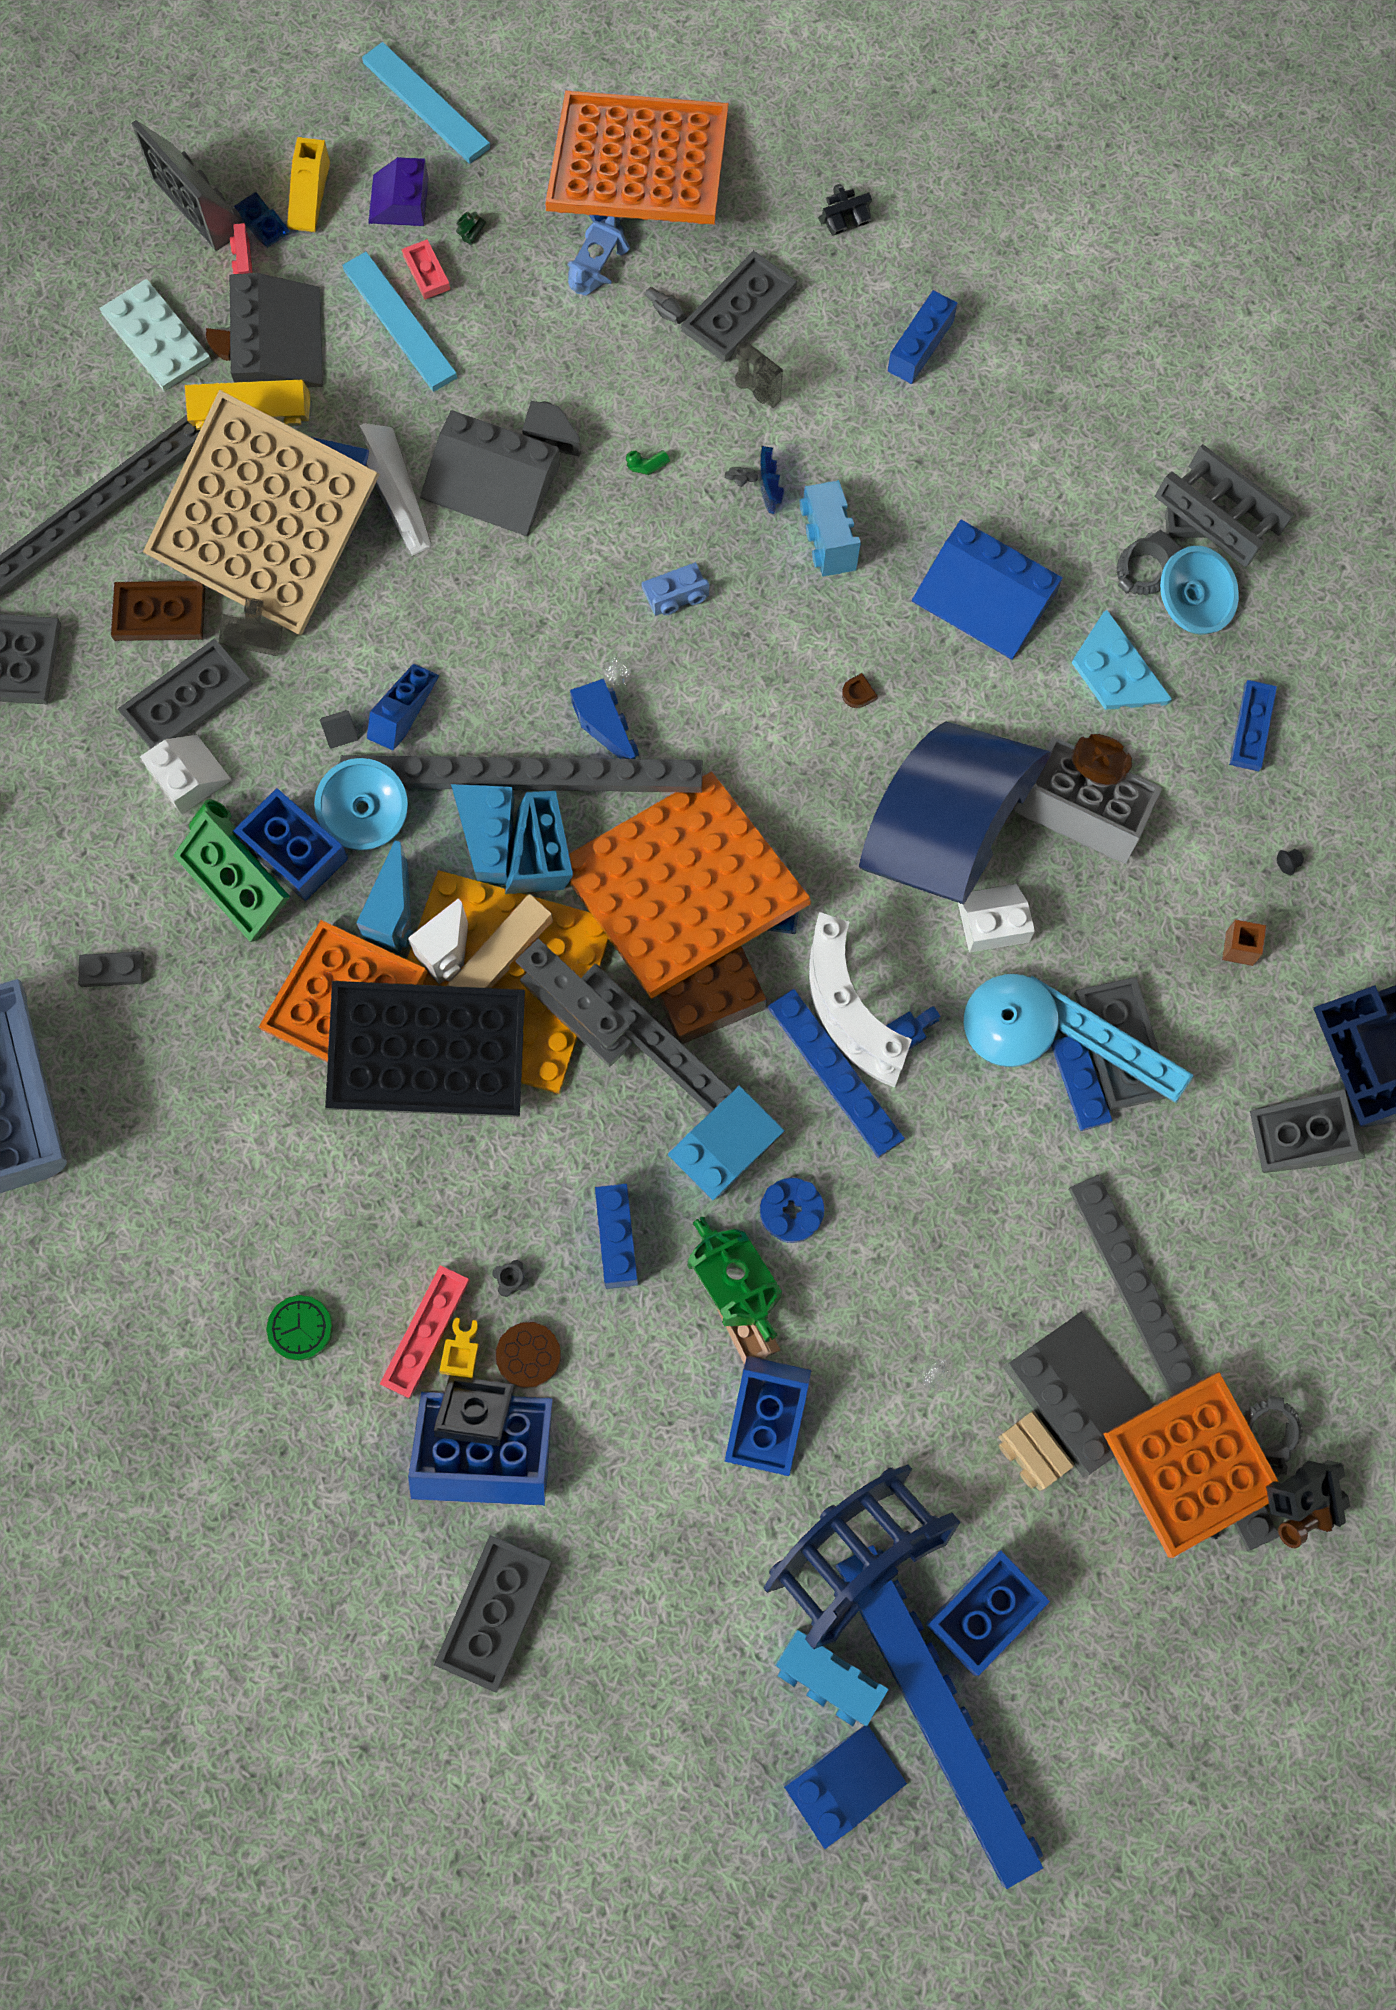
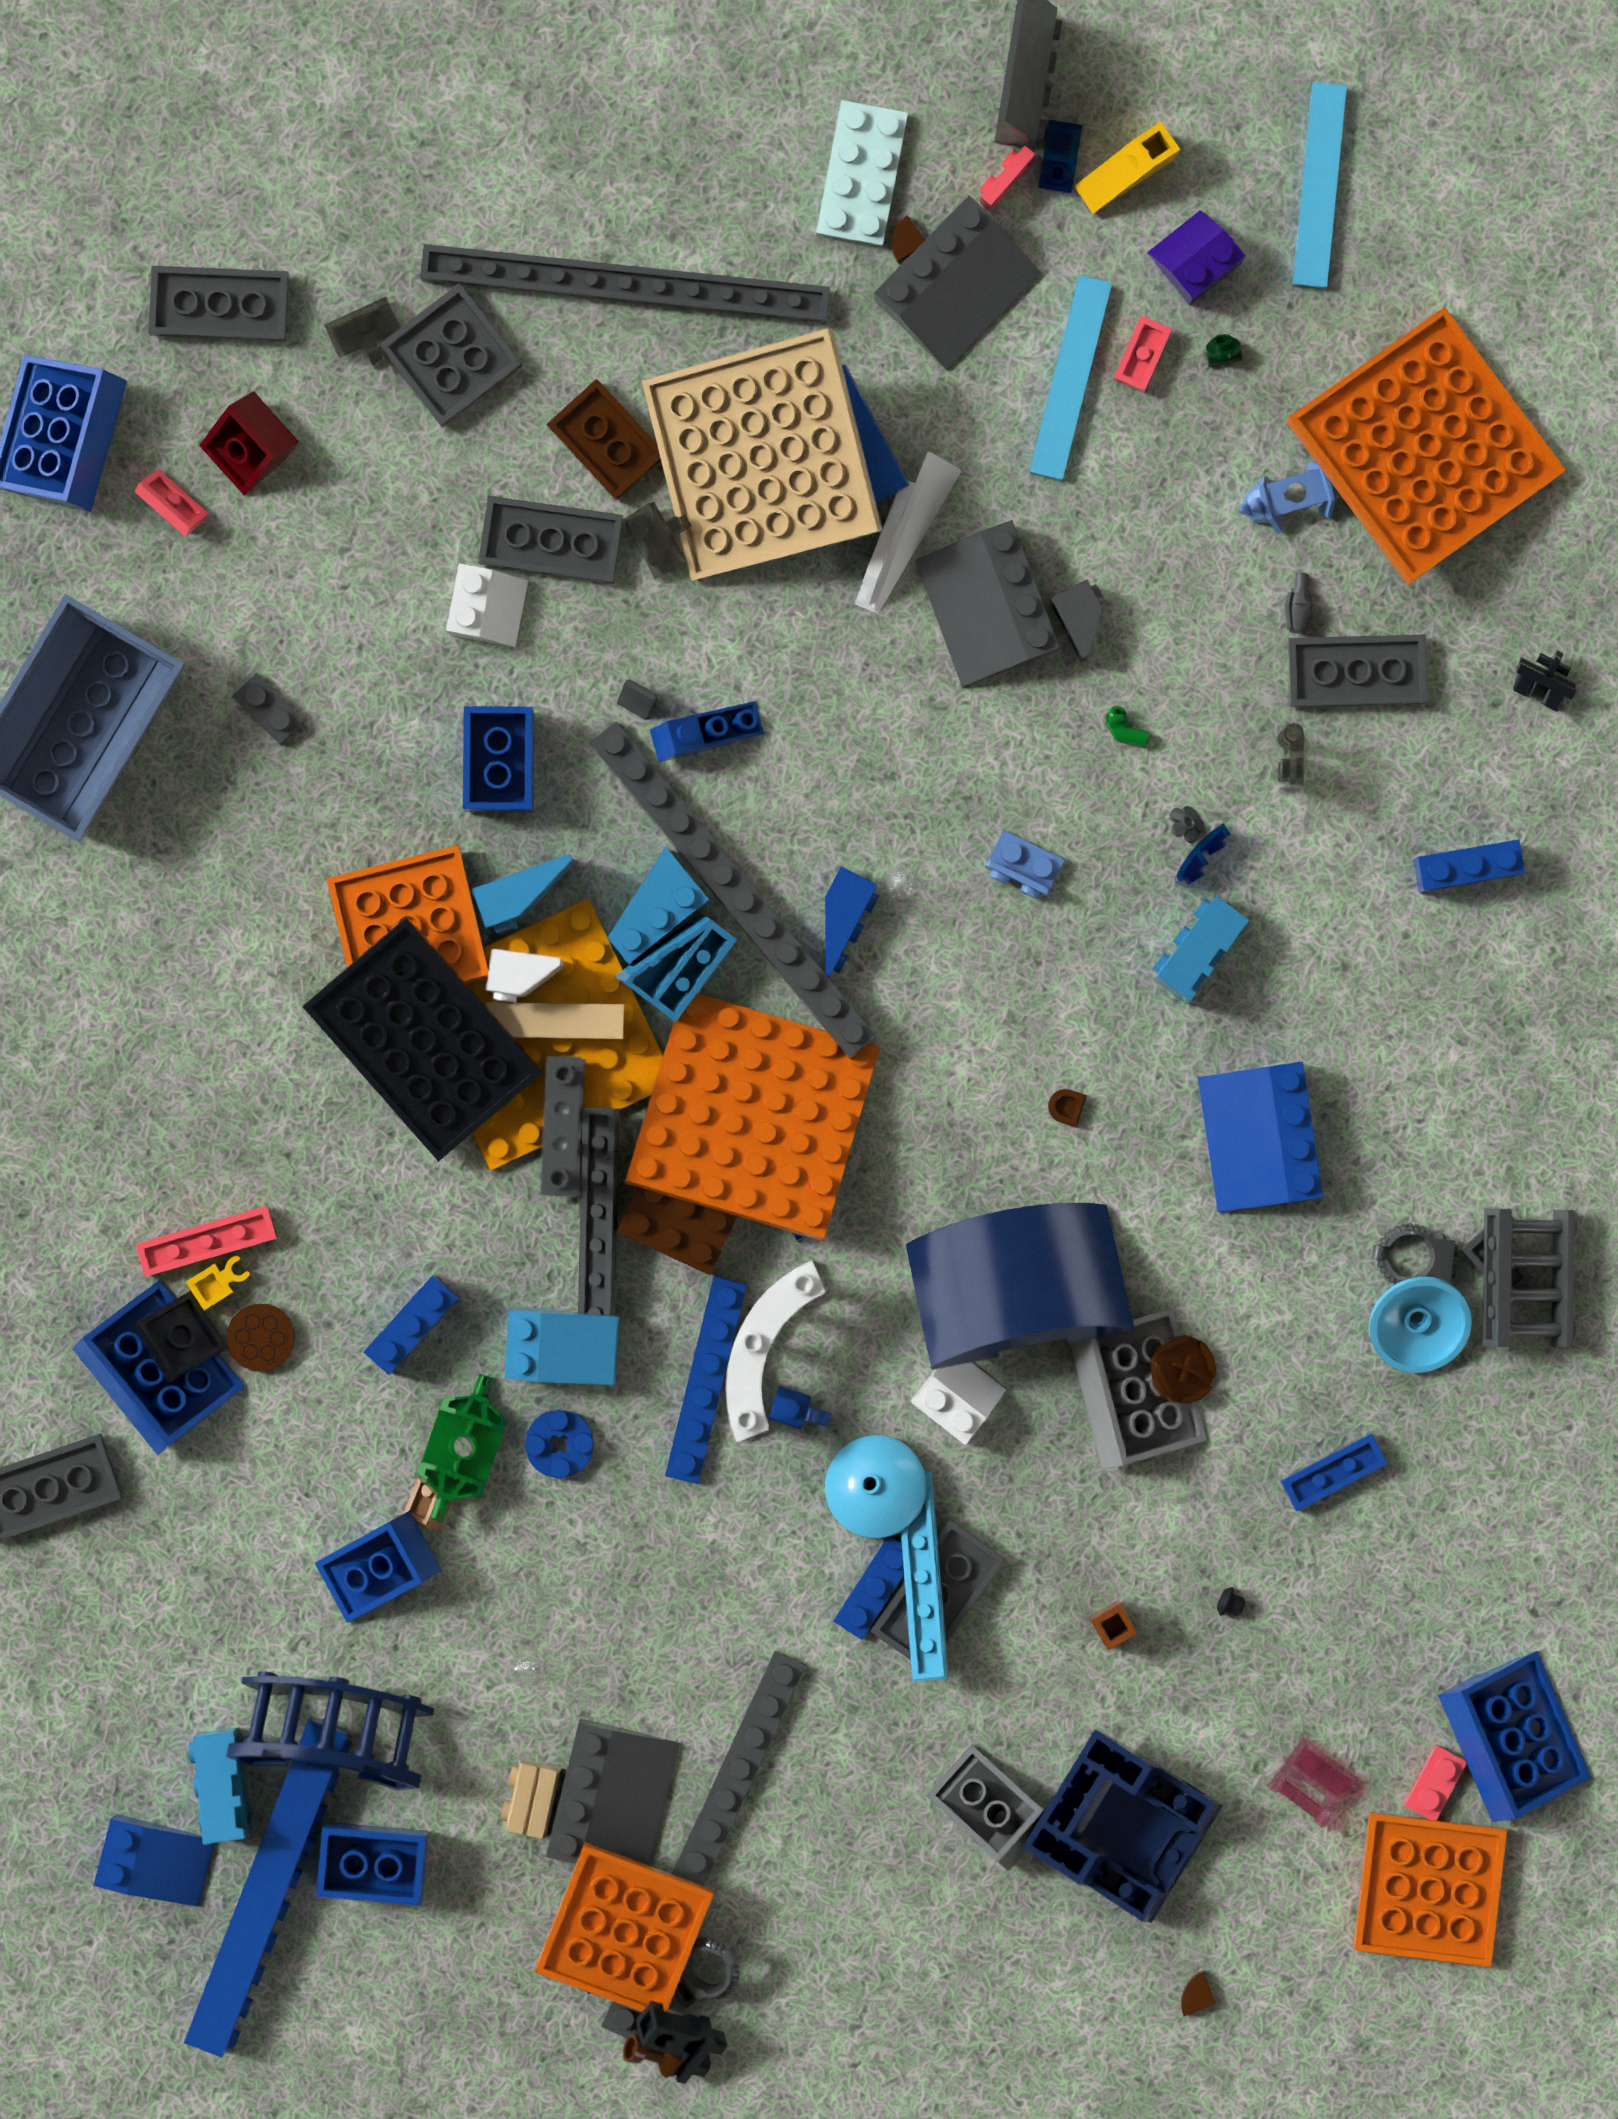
camera: 50 degrees right, 15 degrees up
(211, 852) = (435, 701): hinge -> none
(283, 400) = (859, 337): yellow wedge -> none
(299, 1328) = (123, 1139): green tile -> none
(359, 782) = (566, 800): medium azure dish -> none
(502, 1274) = (305, 1259): dark grey plate -> none
(1116, 669) = (1286, 1310): medium azure wing -> none

